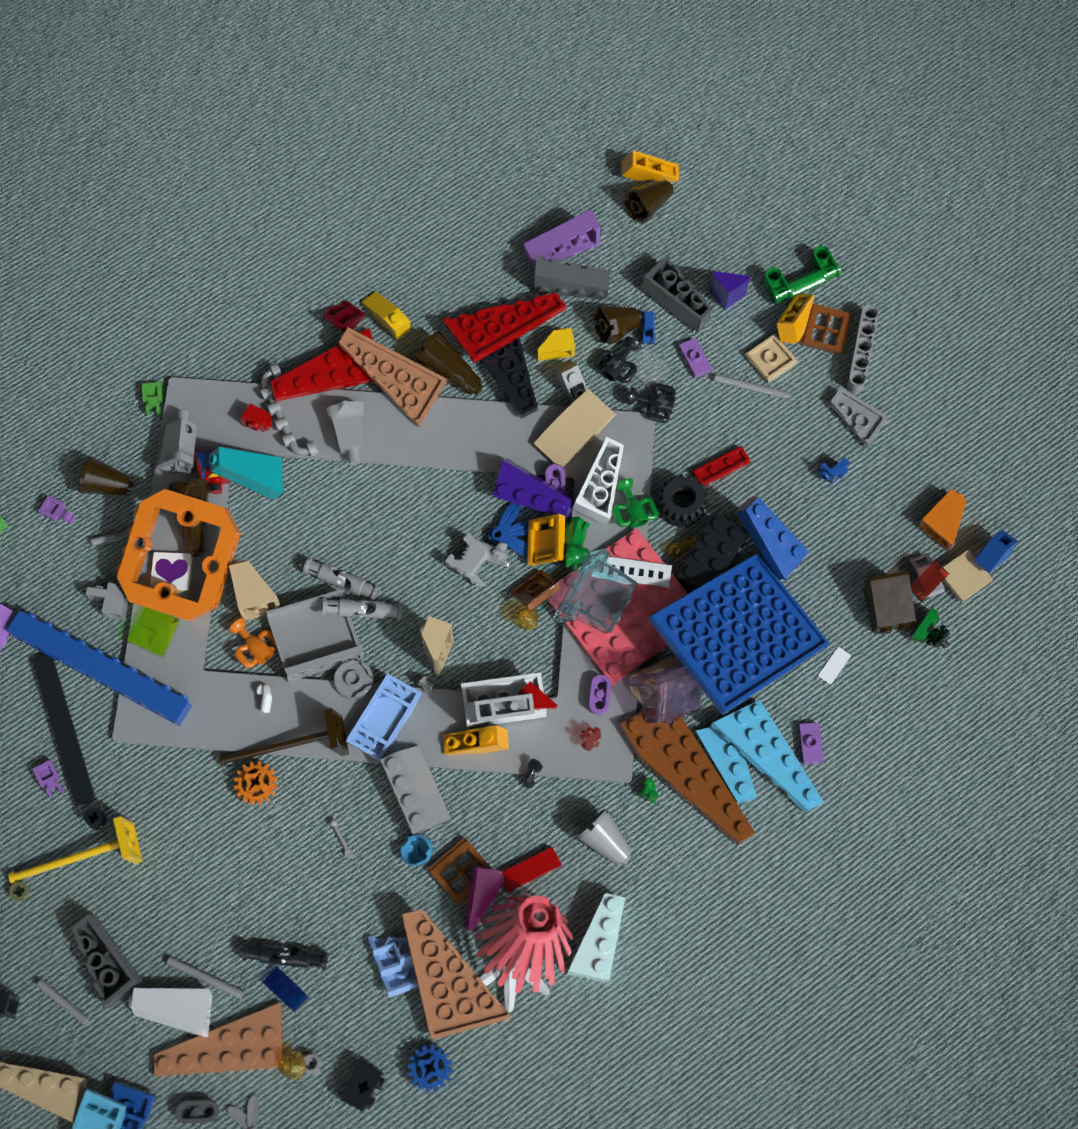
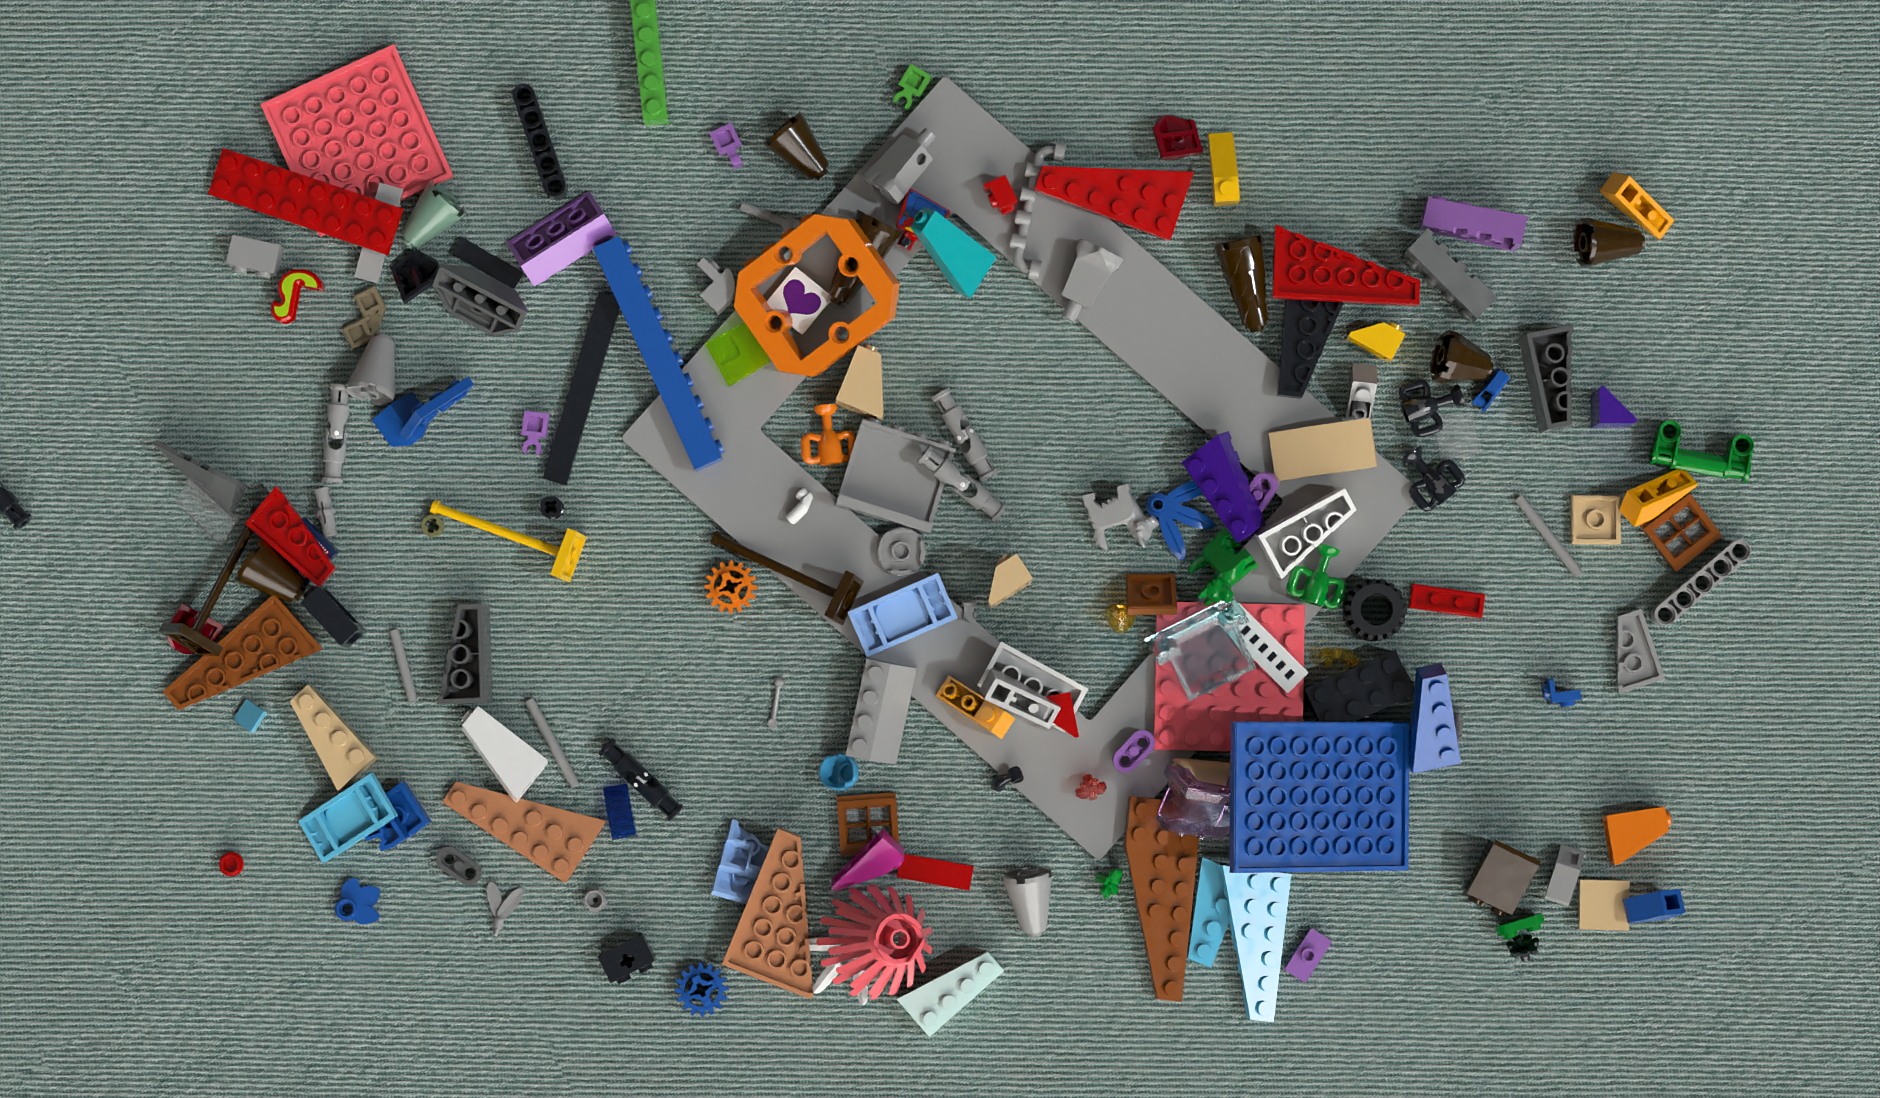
camera: 40 degrees right, 15 degrees up
(293, 1065) = (576, 890): clear yellow cone -> none
(402, 379) = (1183, 260): nougat wing -> none
(548, 544) = (1198, 555): light orange container -> none
(695, 357) = (1514, 460): medium lavender plate -> none
(834, 665) = (1395, 894): white sticker -> none
(928, 581) = (1558, 884): clear red tile -> none

